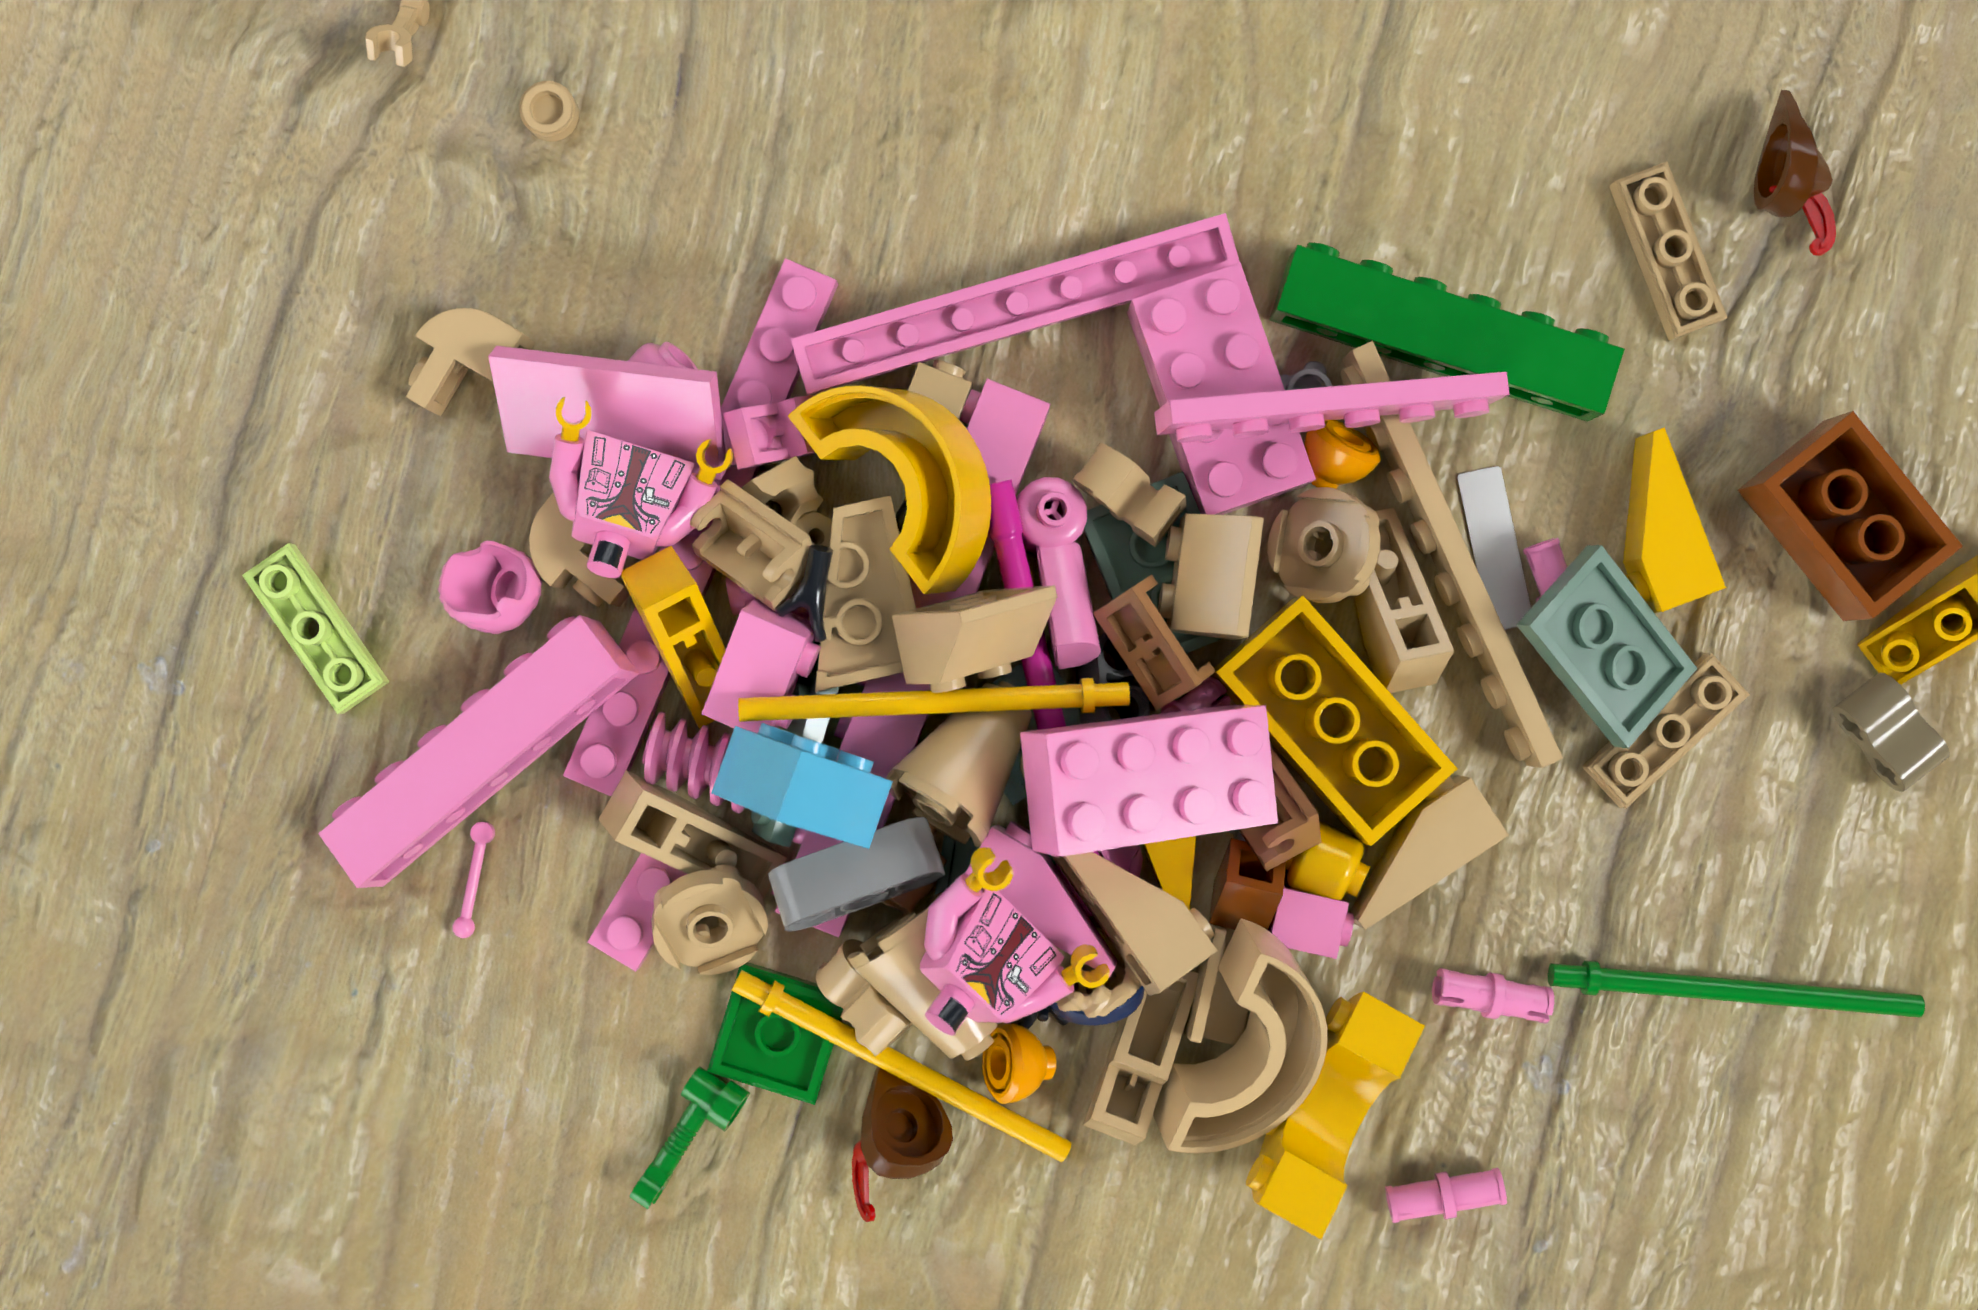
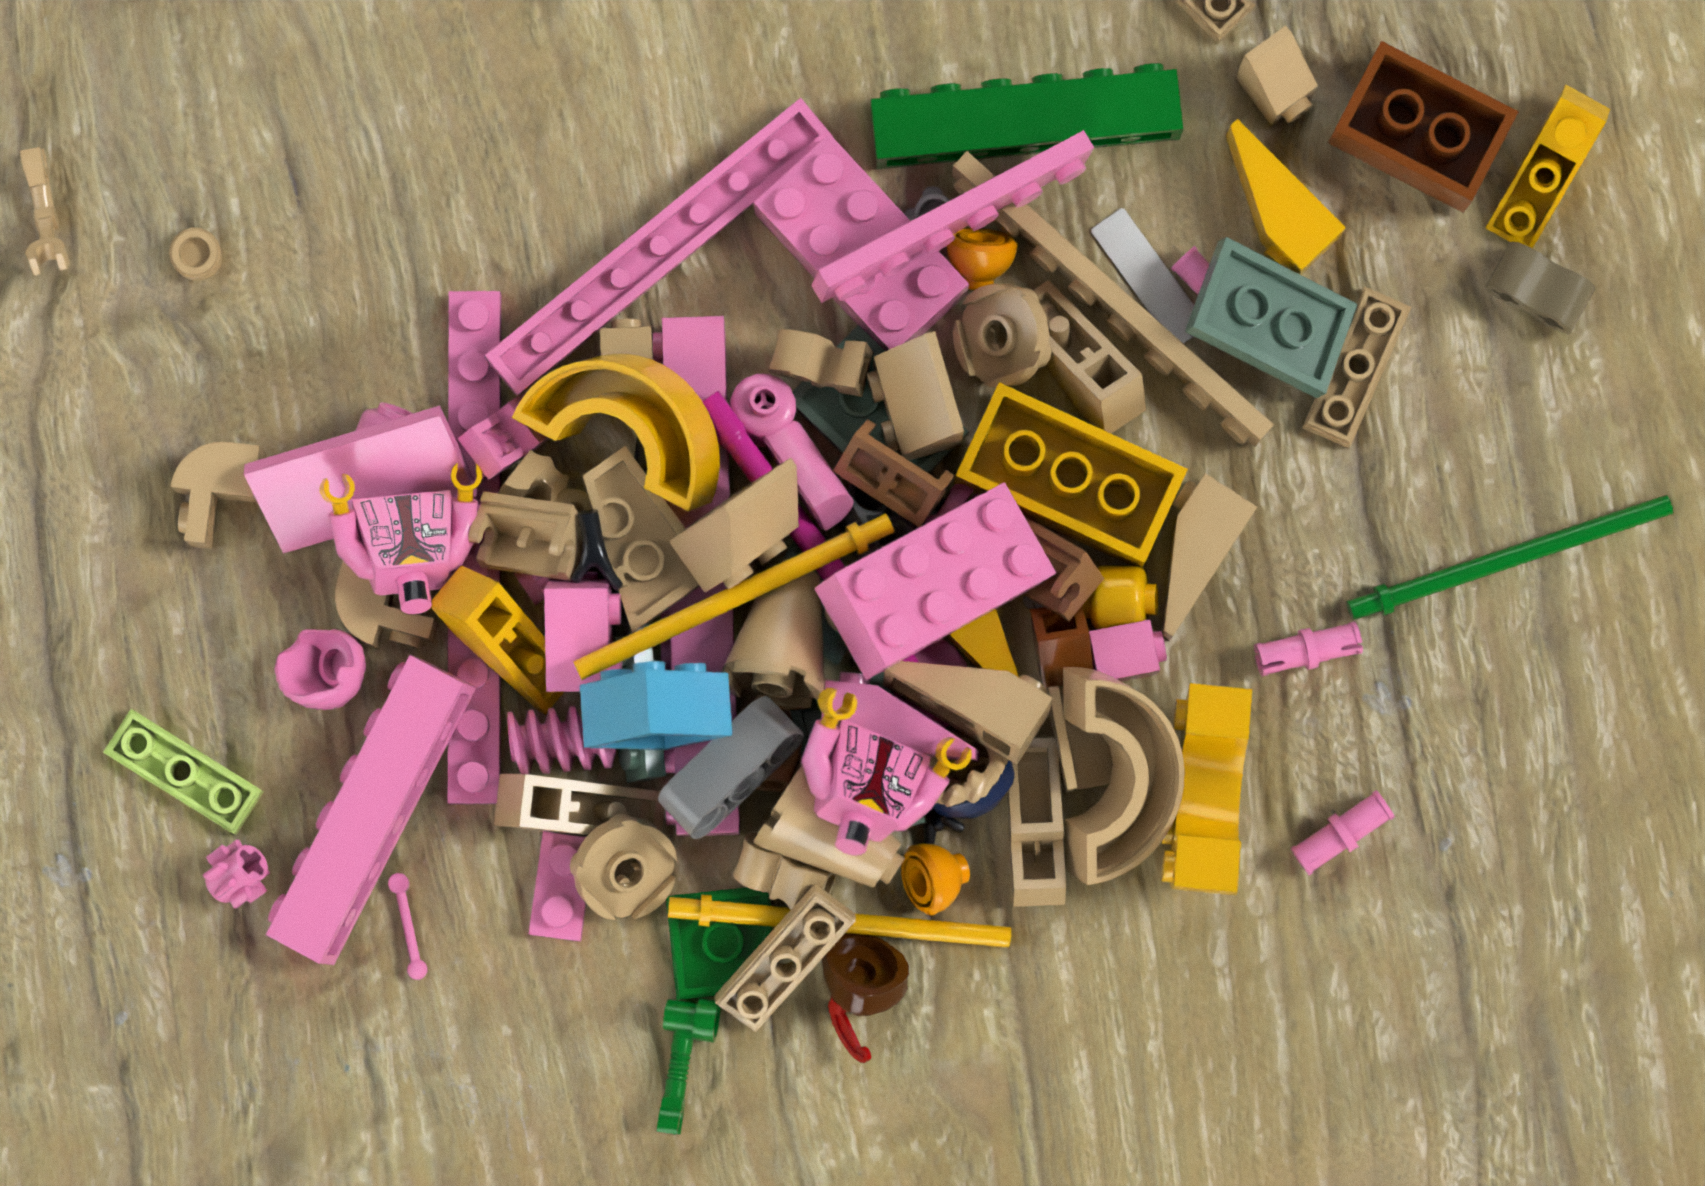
camera: 25 degrees left, 5 degrees down
(319, 756) = (236, 873): none -> bright pink gear
(831, 1083) = (803, 937): none -> tan tile
(1723, 402) = (1278, 78): none -> tan slope

